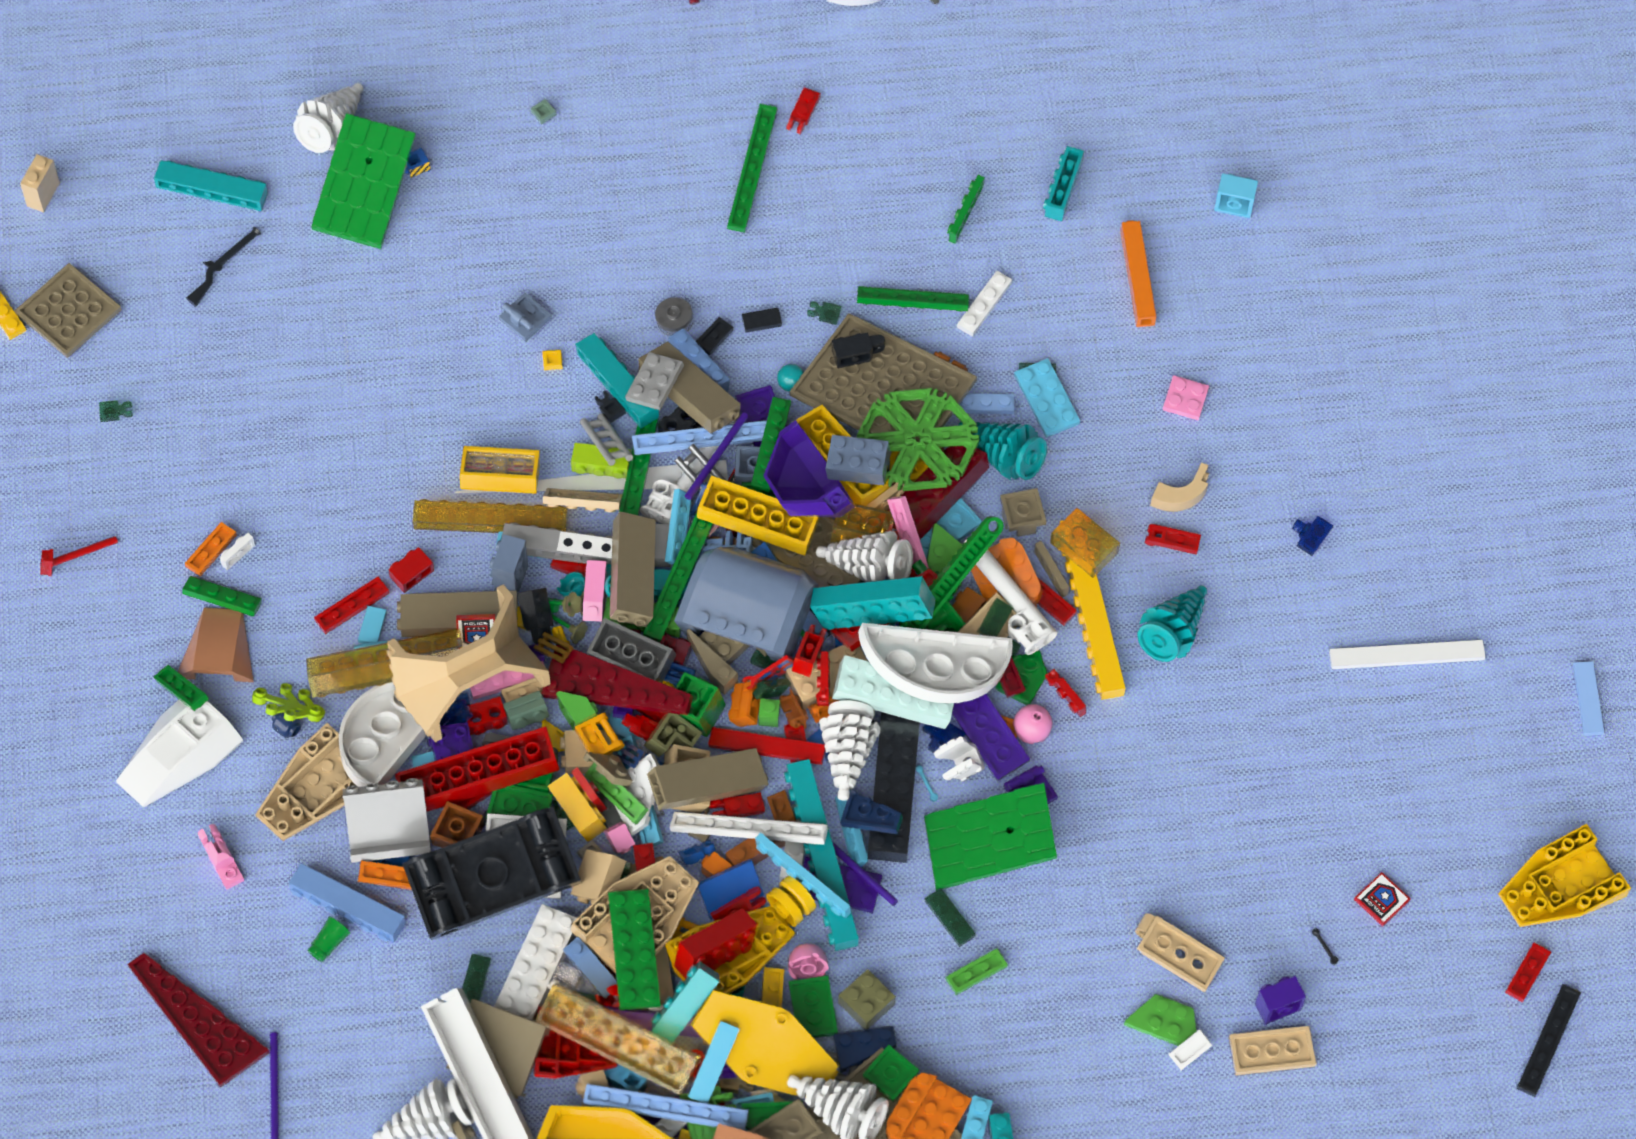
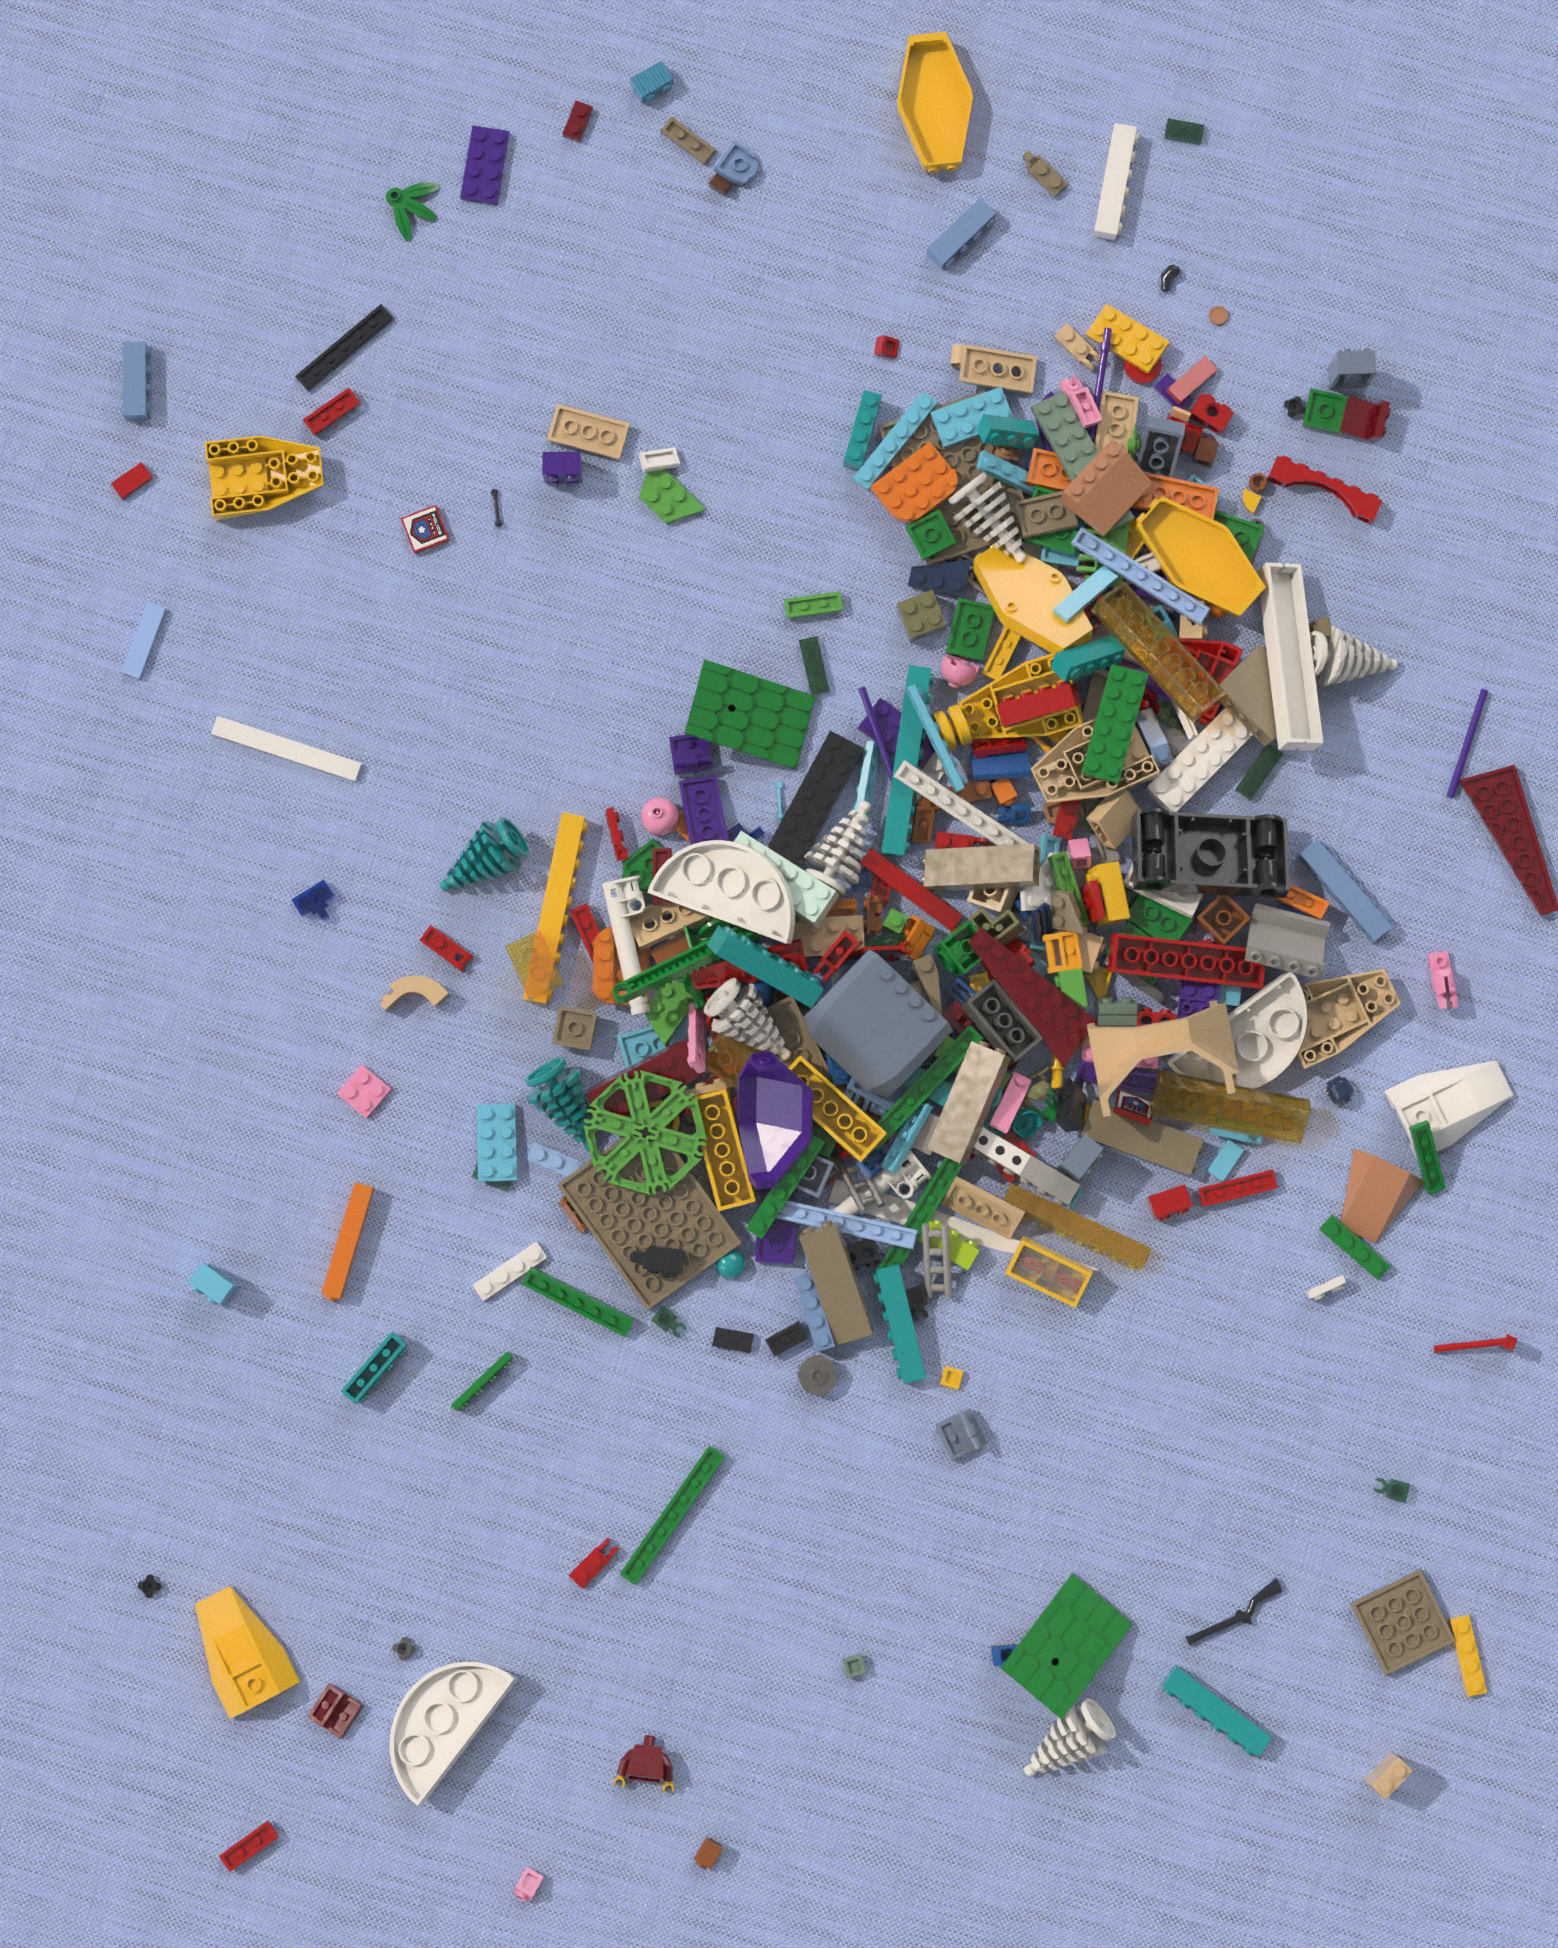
camera: 155 degrees left, 20 degrees up
(210, 549) = (1349, 1300): orange plate -> none
(310, 710) = (1330, 1104): lime plant -> none
(328, 939) = (1373, 862): green plant -> none
(543, 642) = (1077, 1073): pearl gold tile -> none
(654, 381) = (869, 1297): light grey plate -> none
(716, 456) = (842, 1193): dark purple piece -> none
(823, 680) = (837, 921): red hinge -> none
(858, 460) = (714, 1124): sand blue brick -> none
(867, 815) = (851, 776): dark blue wing -> none
(960, 751) = (740, 791): white piece -> none
(995, 618) = (652, 922): clear green plate -> none
(1051, 569) = (573, 957): dark tan tile -> none
(1163, 939) = (637, 563): tan hinge -> none

